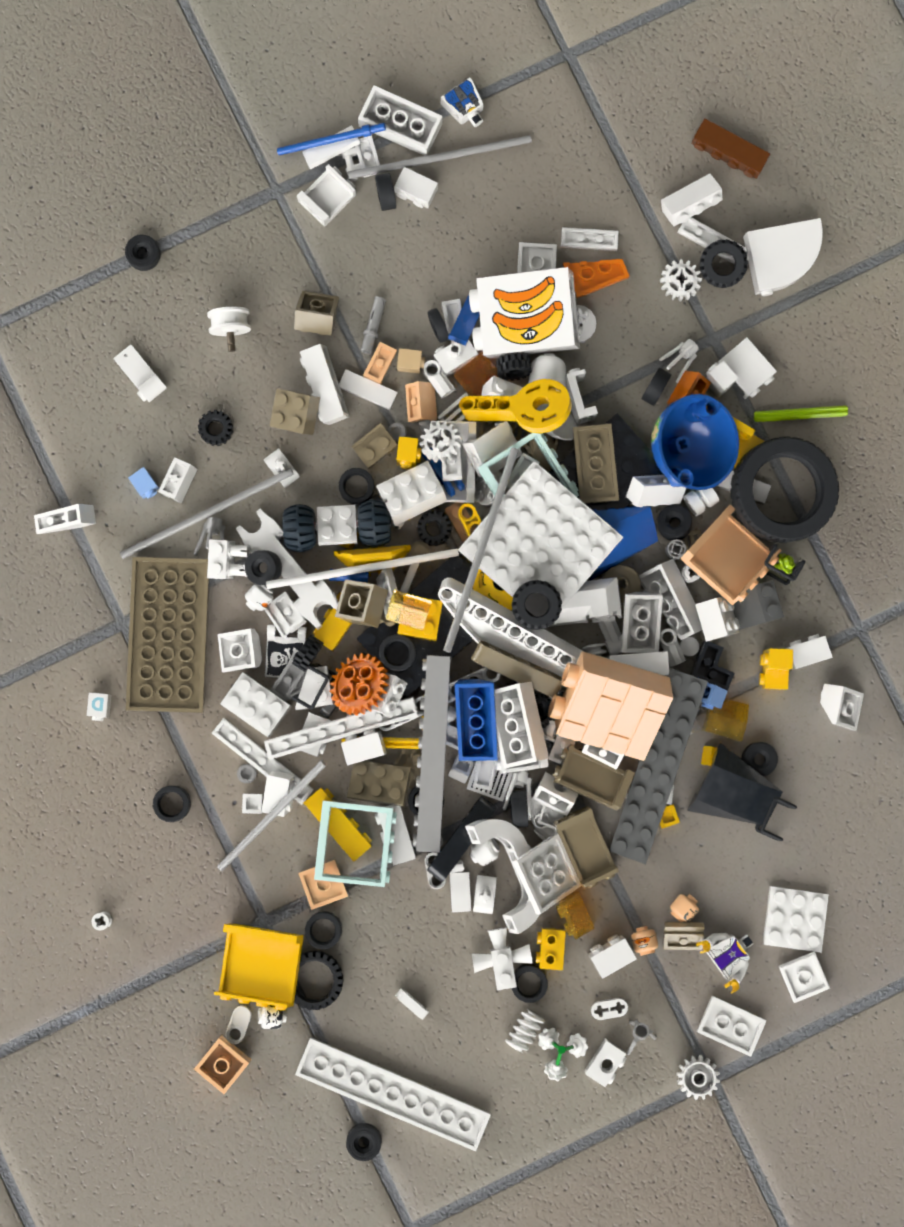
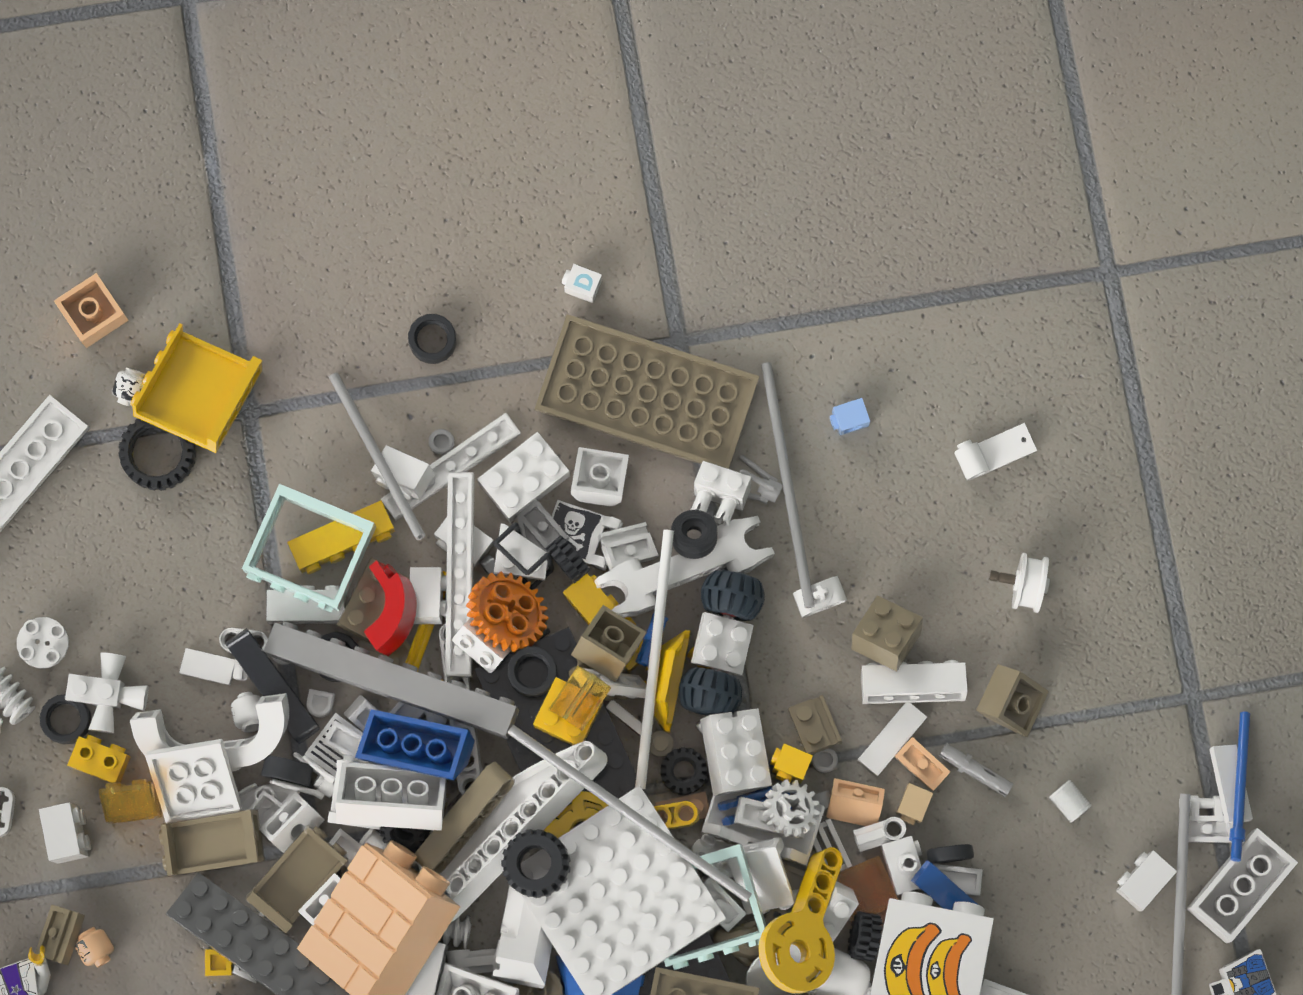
camera: 110 degrees right, 5 degrees down
(65, 518) = (832, 306): white slope -> none
(96, 923) = (314, 206): white bush -> none
(132, 248) = (1165, 489): black tyre -> none
(177, 480) = (841, 460): white hinge -> none
(211, 417) = (901, 512): black tyre -> none
(239, 1020) = (138, 346): white piece -> none
(252, 803) = (401, 437): white plate -> none
(259, 597) = (658, 518): white head -> none
(322, 892) = (261, 490): light nougat plate -> none
(323, 915) = (205, 464): black tyre -> none
(327, 195) = (1167, 760): white panel -> none
(353, 472) = (765, 667): black tyre -> none
(376, 253) = (1070, 801): none -> white piece
(382, 761) = (398, 613): none -> red arch
(385, 191) = (1149, 837): black tyre -> none
(411, 1003) = (88, 564): white beam -> none
(462, 802) = (320, 703): none -> white tile
(484, 894) = (194, 696): white beam -> none
(489, 1018) = (39, 654): none -> white plate
(644, 940) = (69, 882): light nougat head -> none

